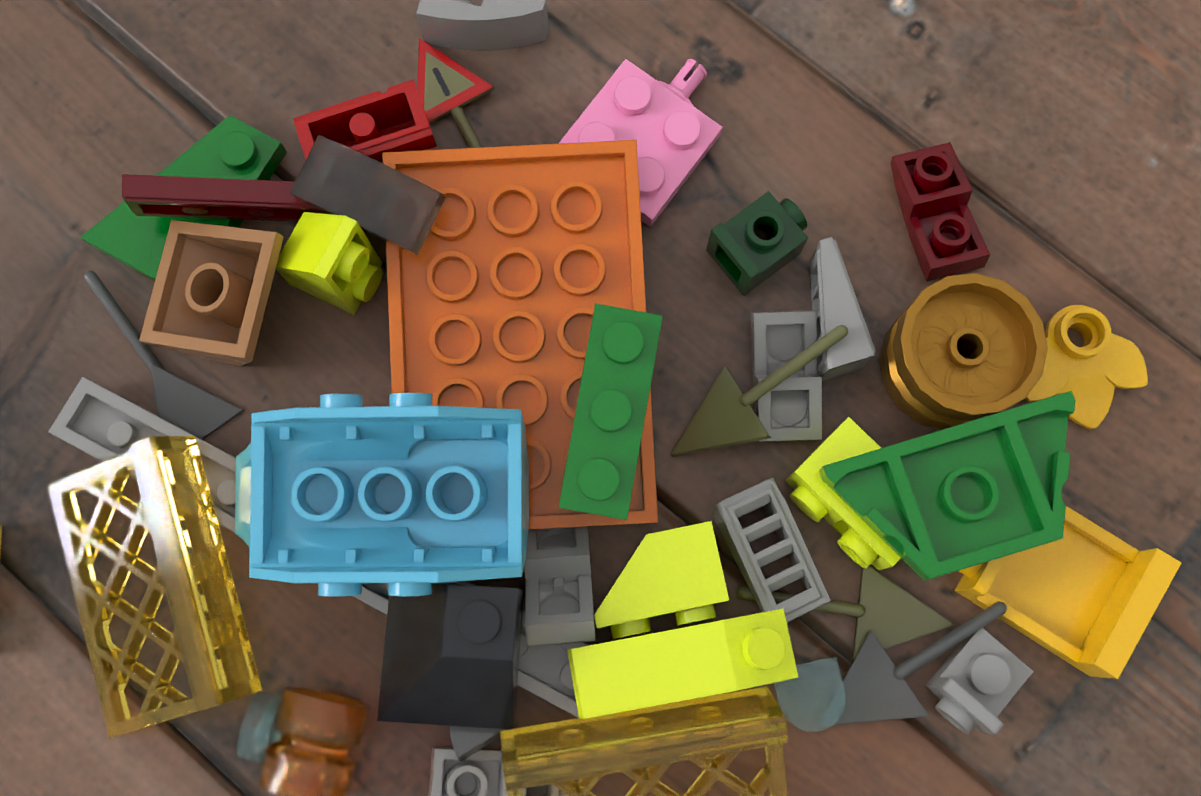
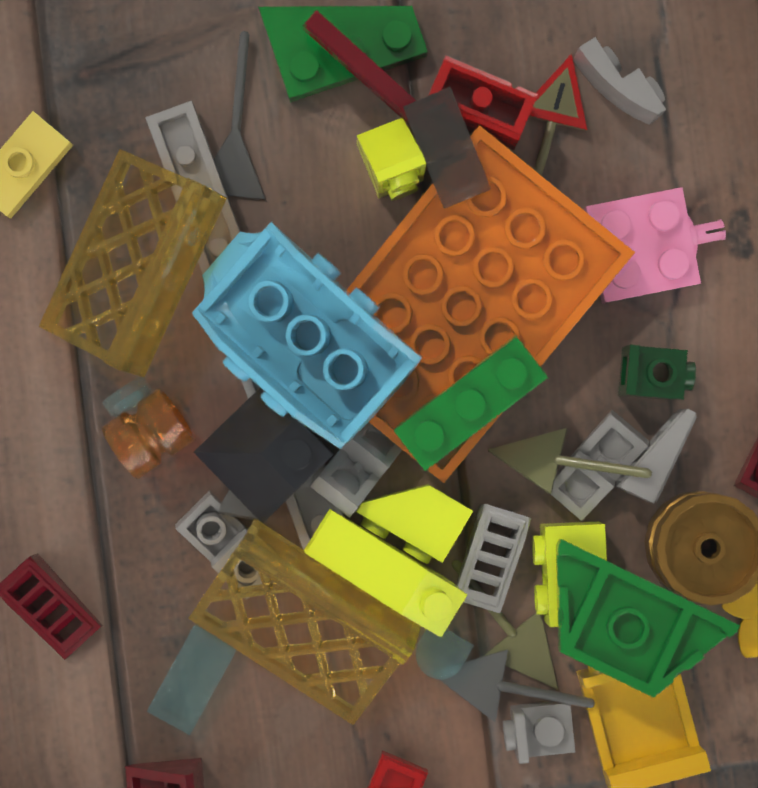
camera: 40 degrees right, 10 degrees up
(212, 291) = (309, 118): medium nougat slope -> none

